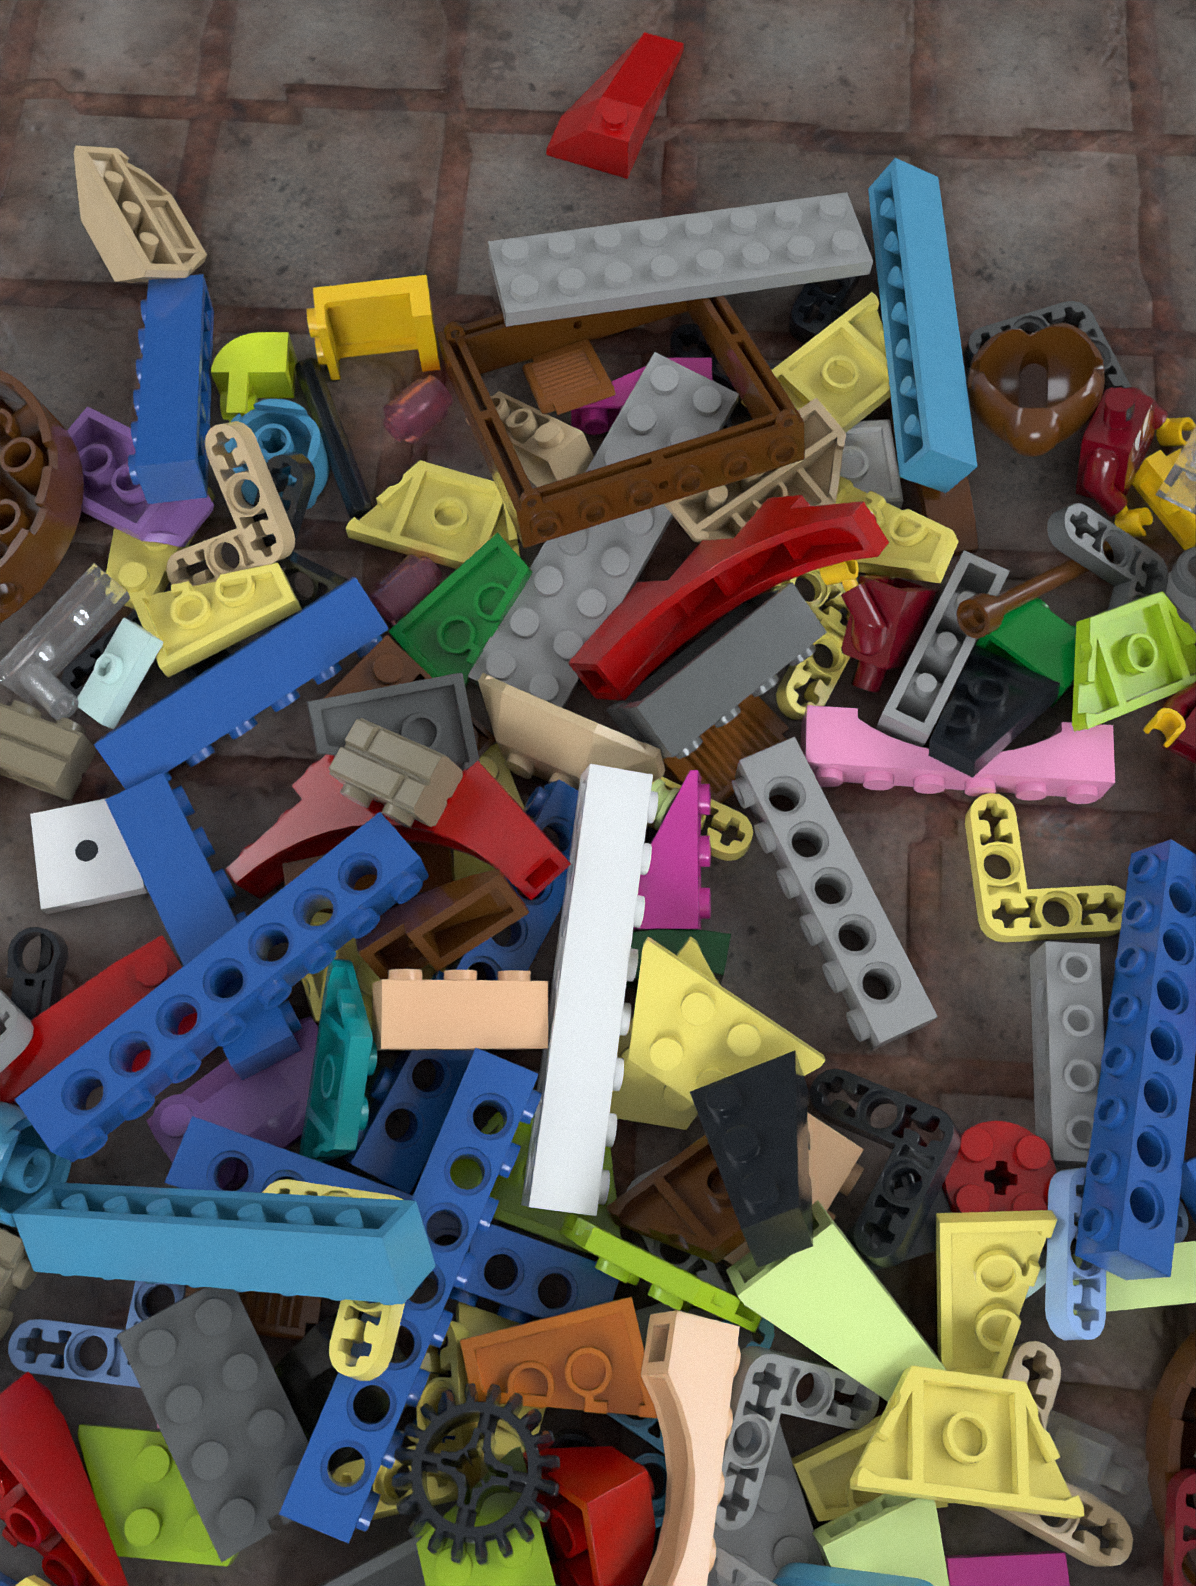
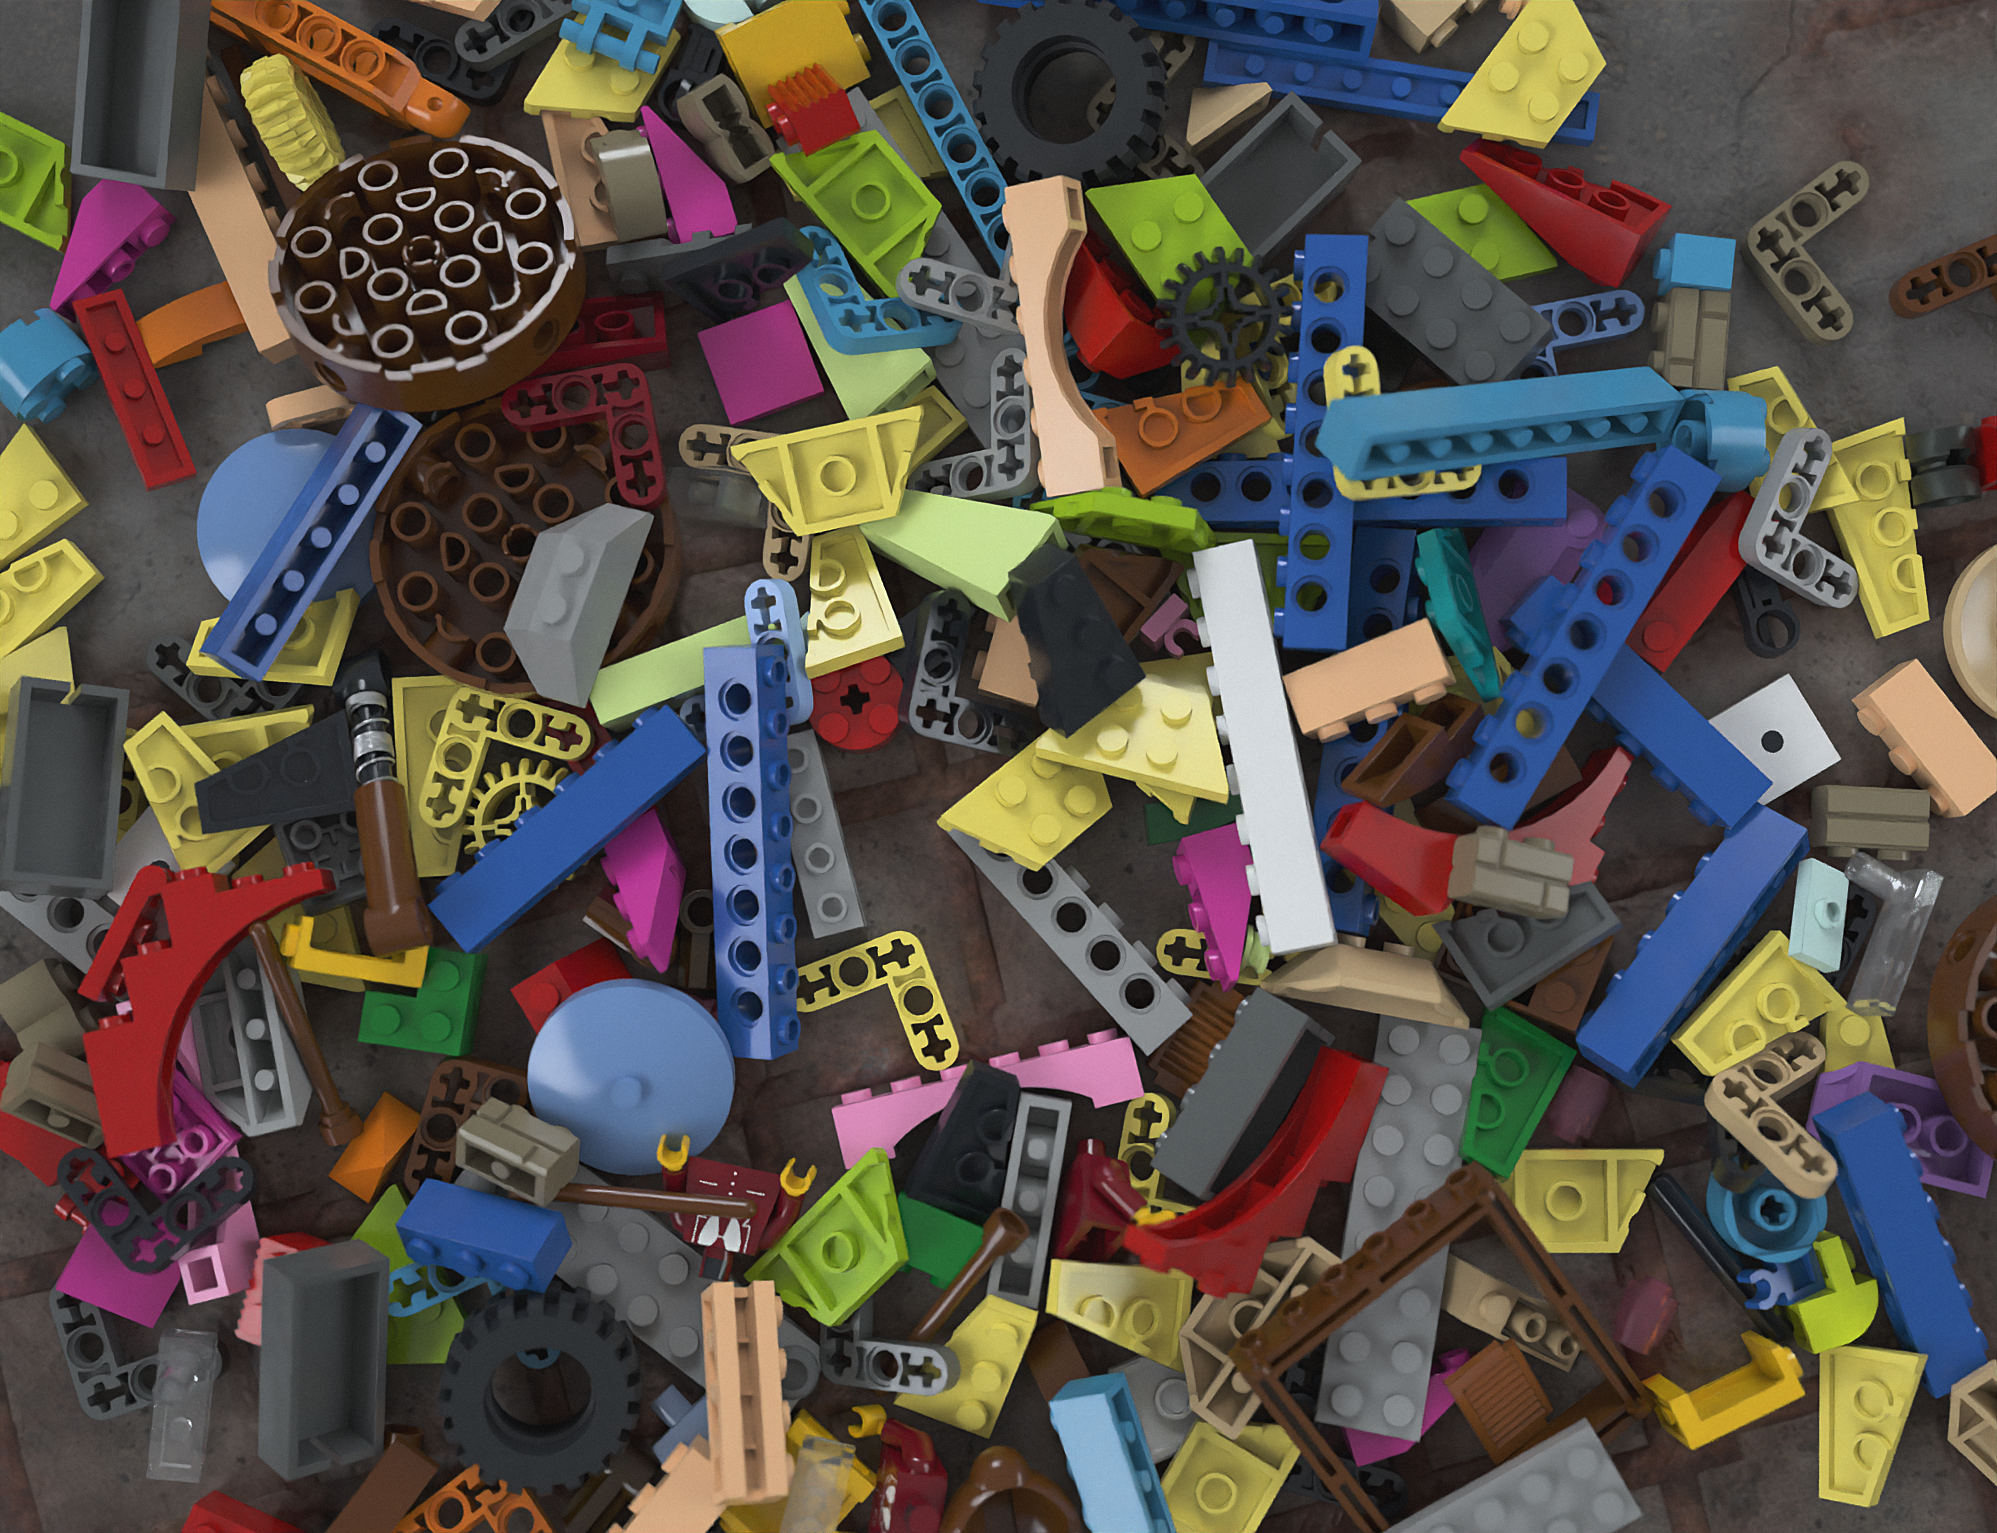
camera: 165 degrees right, 15 degrees up
(269, 281) = (1862, 1417): none -> light yellow wing
(291, 389) = (1784, 1281): none -> blue plate
(641, 1157) = (1166, 624): none -> bright pink tile
(846, 1005) = (1031, 808): none -> light yellow wing
(1017, 529) = (989, 1353): none -> light yellow wing

